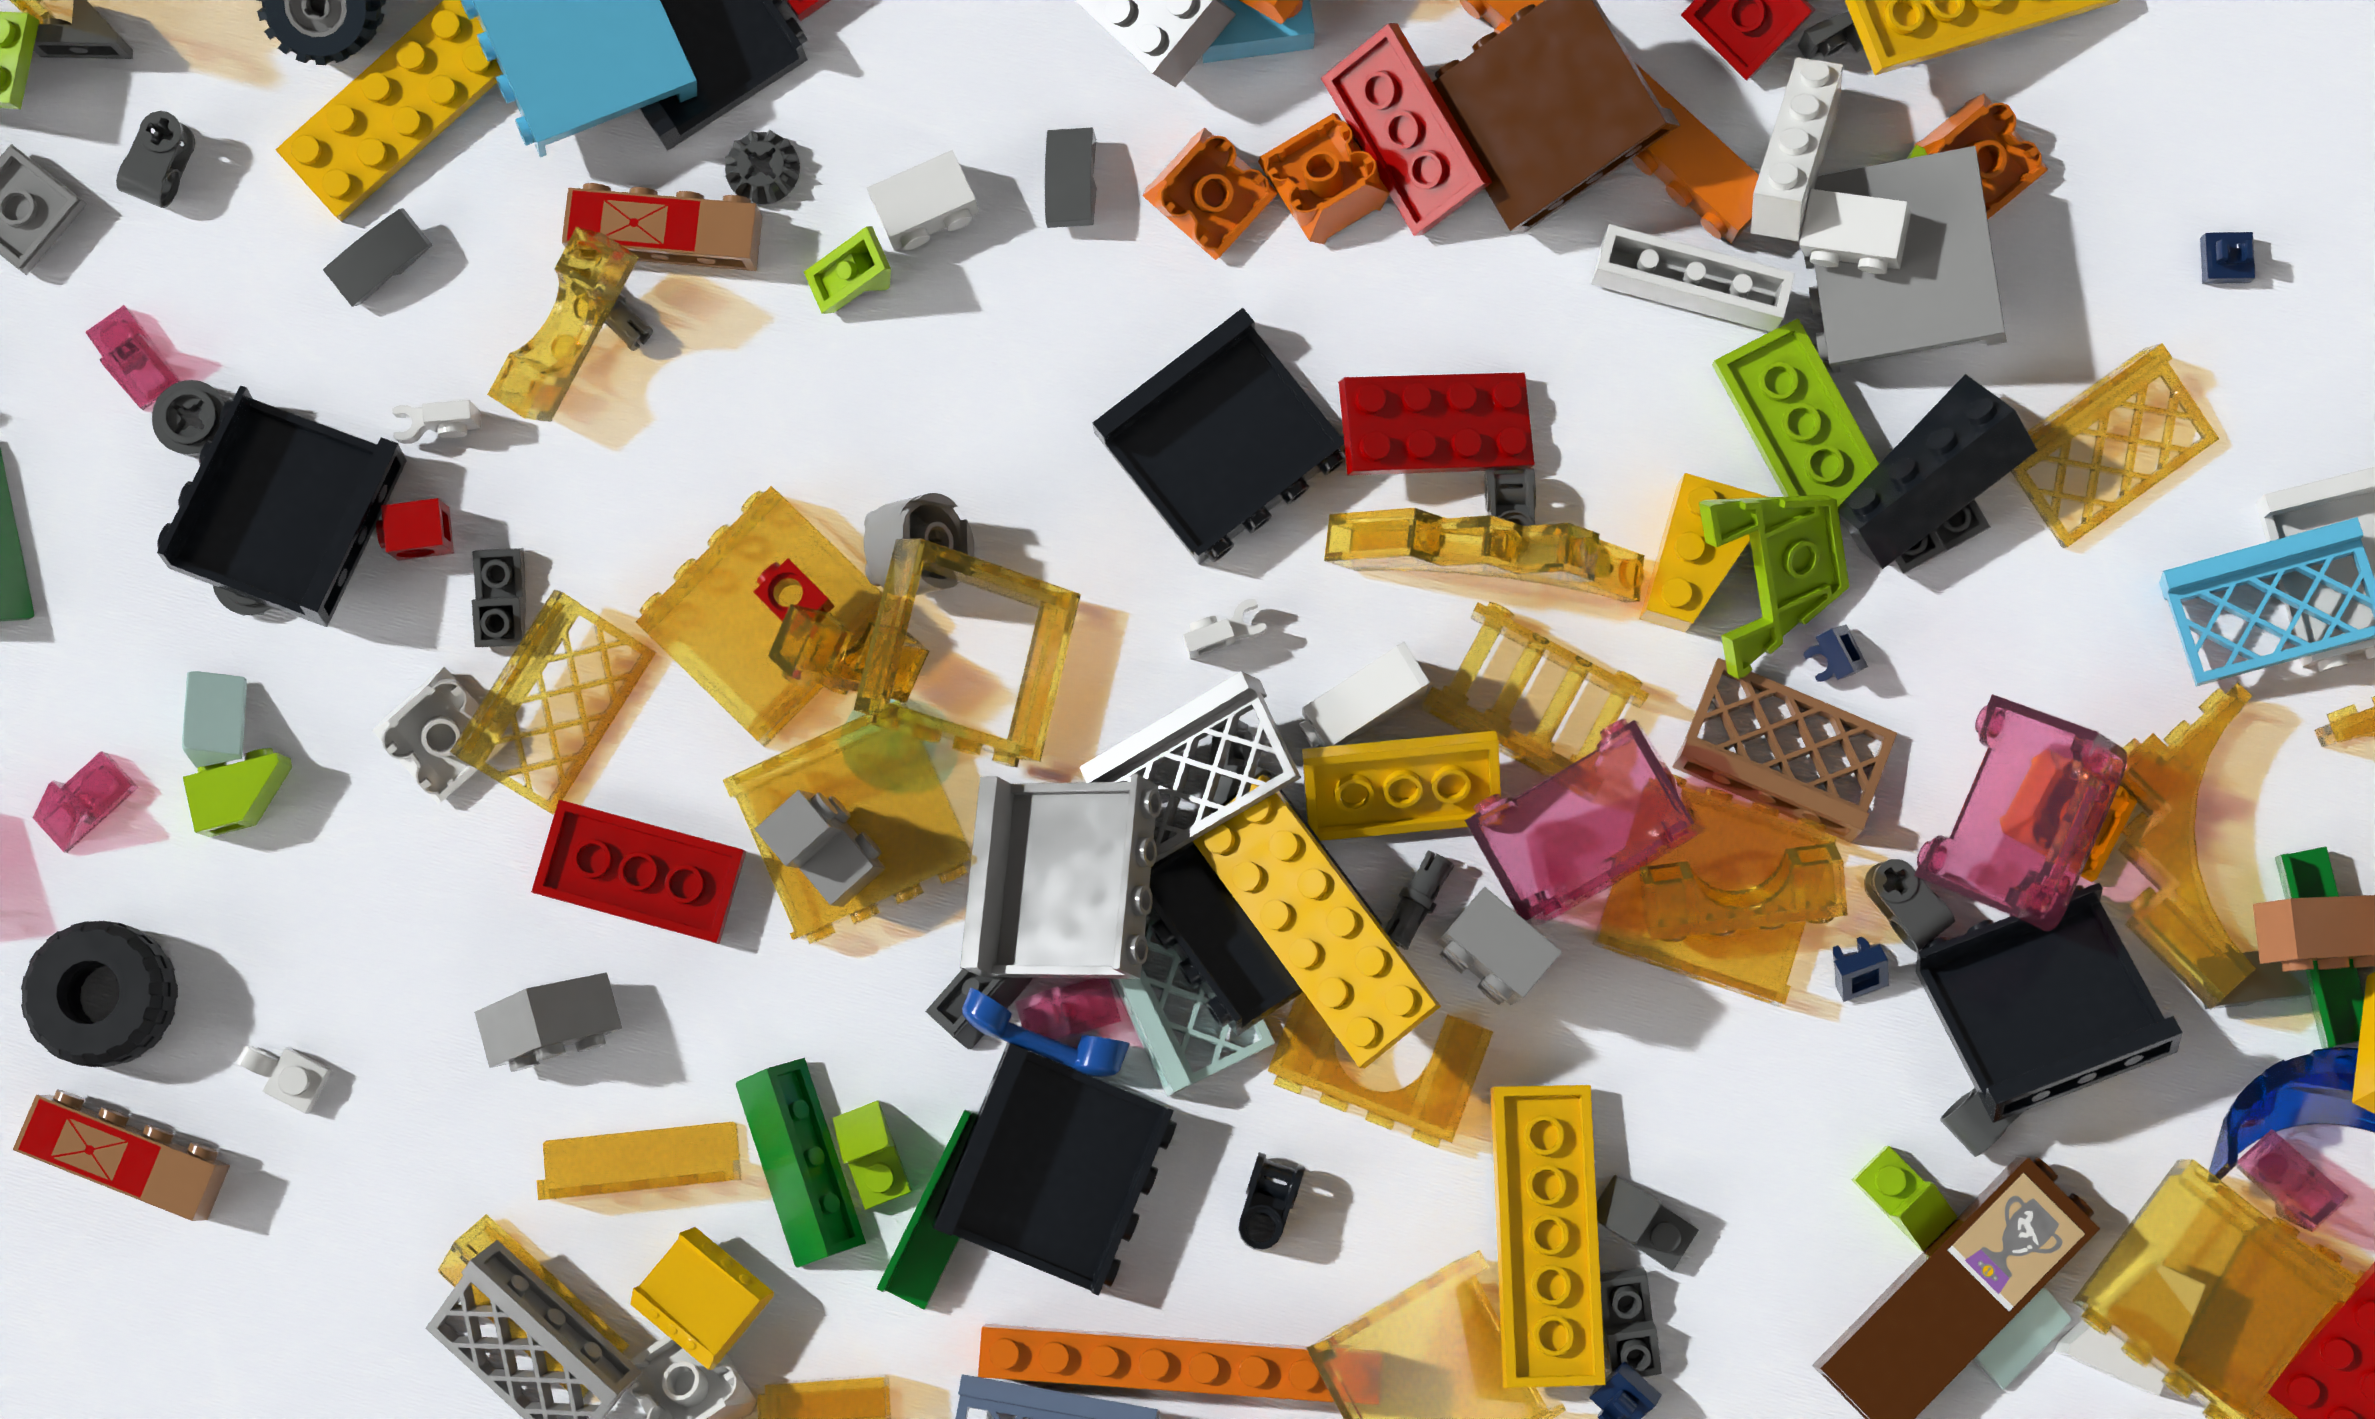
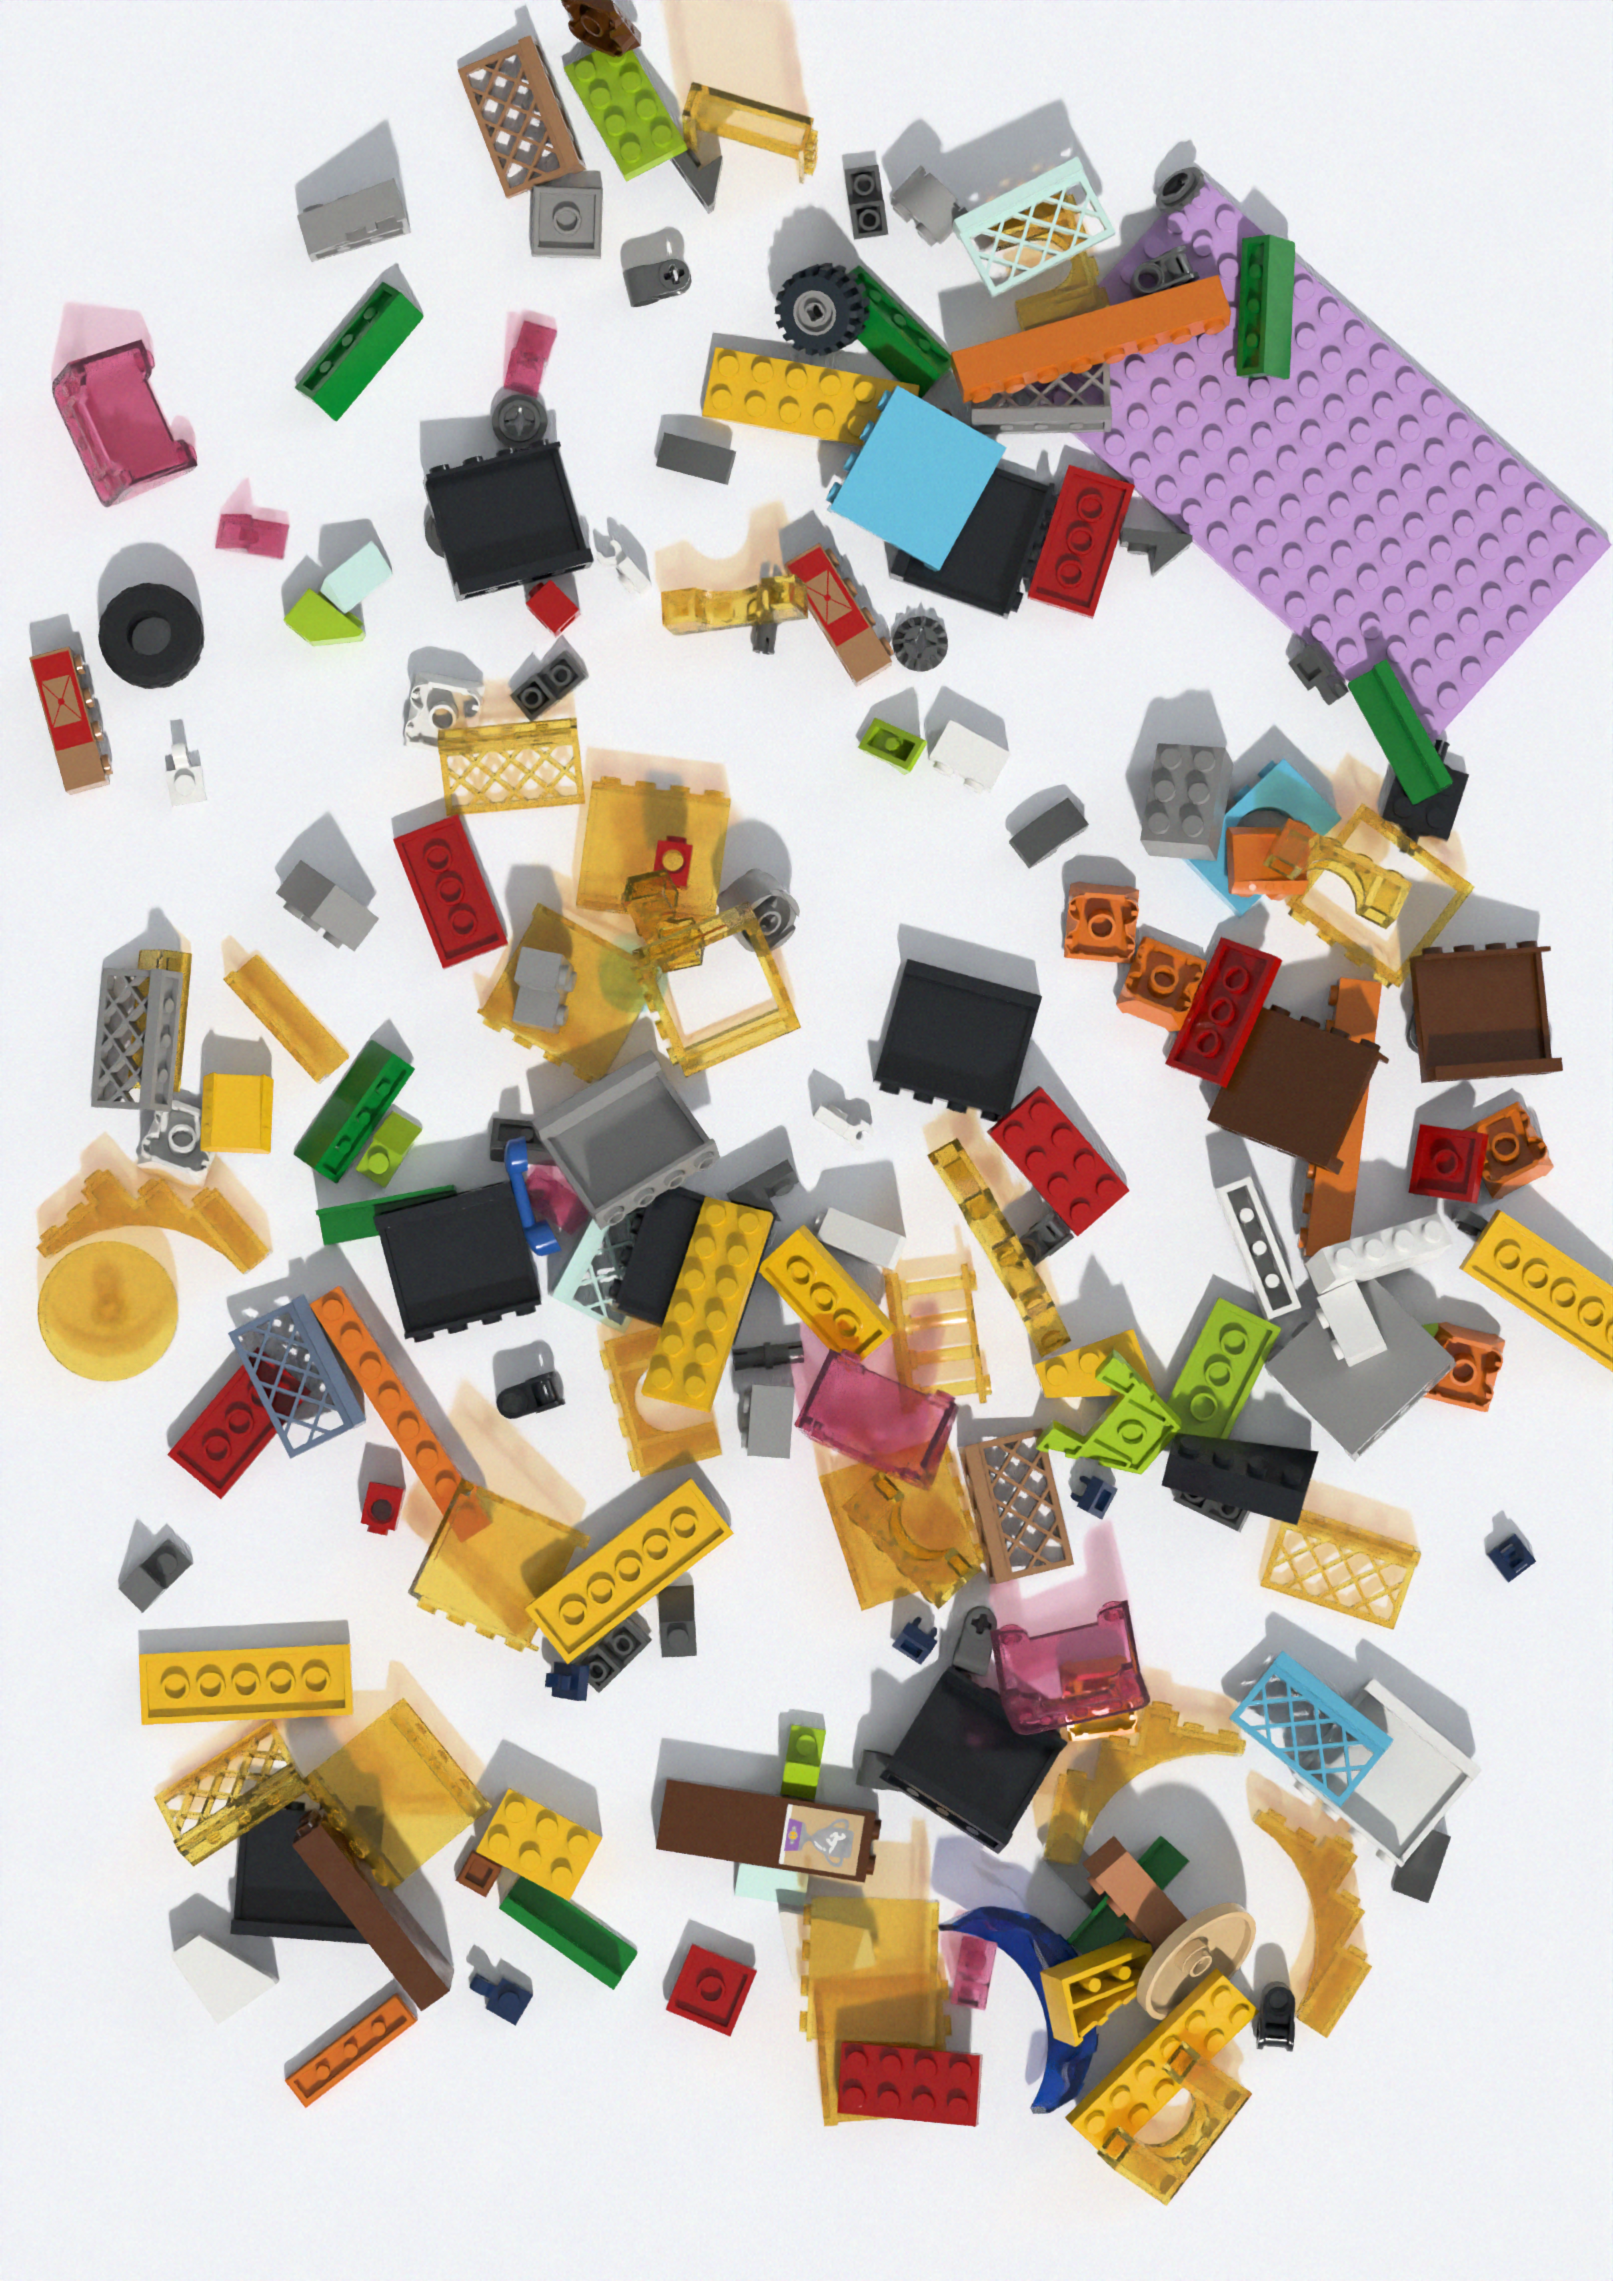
camera: 45 degrees right, 5 degrees up
(1183, 731) = (763, 1148): fence -> none

